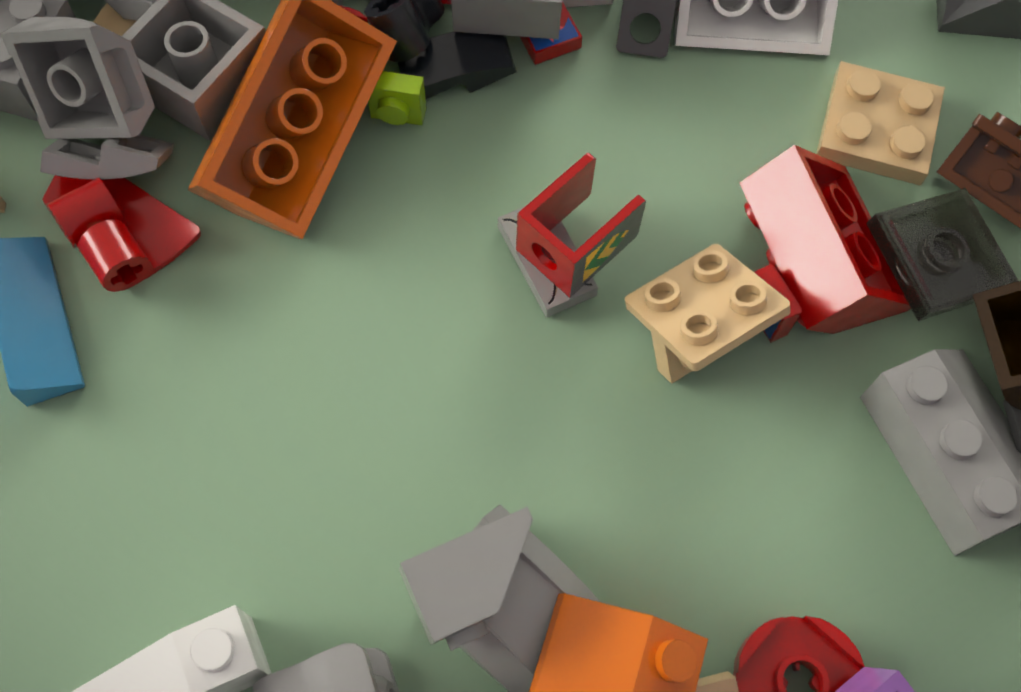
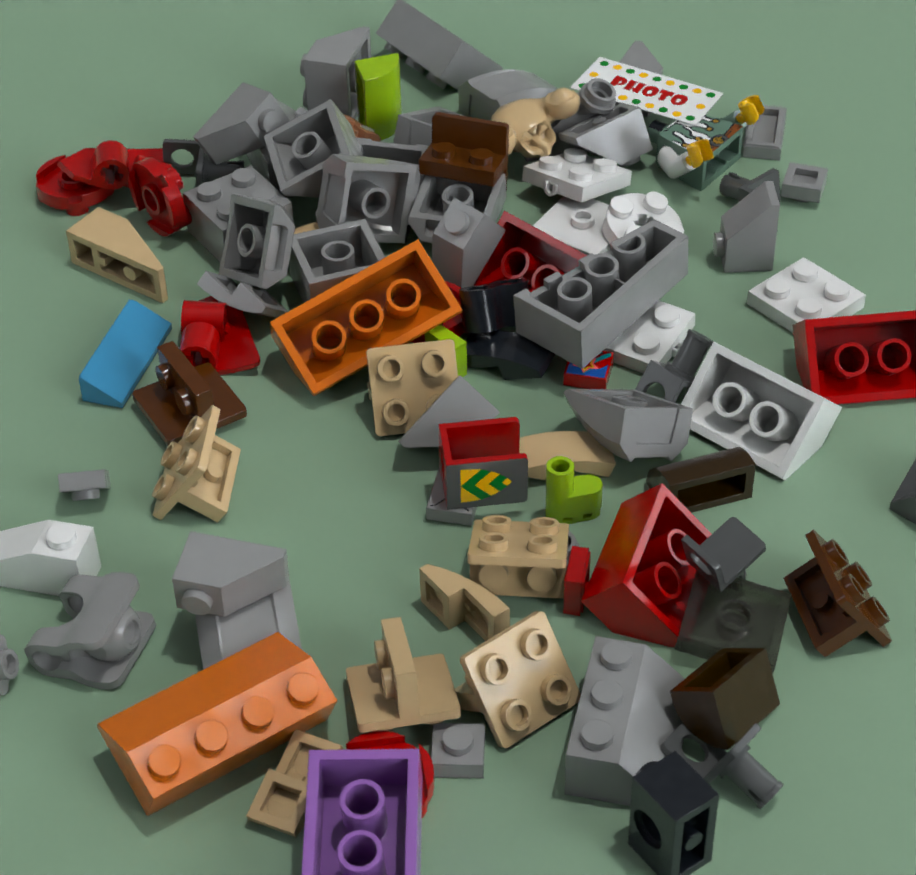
camera: 40 degrees right, 25 degrees down
(143, 529) = (84, 484): none -> light grey plate
(162, 334) = (184, 393): none -> reddish brown bracket
(264, 428) = (198, 470): none -> tan bracket
(412, 168) = (408, 381): none -> tan bracket
(486, 188) = (456, 404): none -> light grey slope
(624, 150) = (578, 446): none -> tan slope
(660, 75) = (632, 421): none -> light grey slope
(675, 406) = (459, 599): none -> tan slope
(678, 202) = (571, 497): none -> lime piece
(729, 561) = (401, 688): none -> tan bracket
(771, 102) = (708, 479): none -> dark brown brick
(826, 470) = (518, 680): none -> tan bracket
(829, 583) = (458, 750): none -> light grey plate
(881, 123) = (781, 523): tan plate -> none
(905, 188) = (724, 553): none -> dark grey bracket

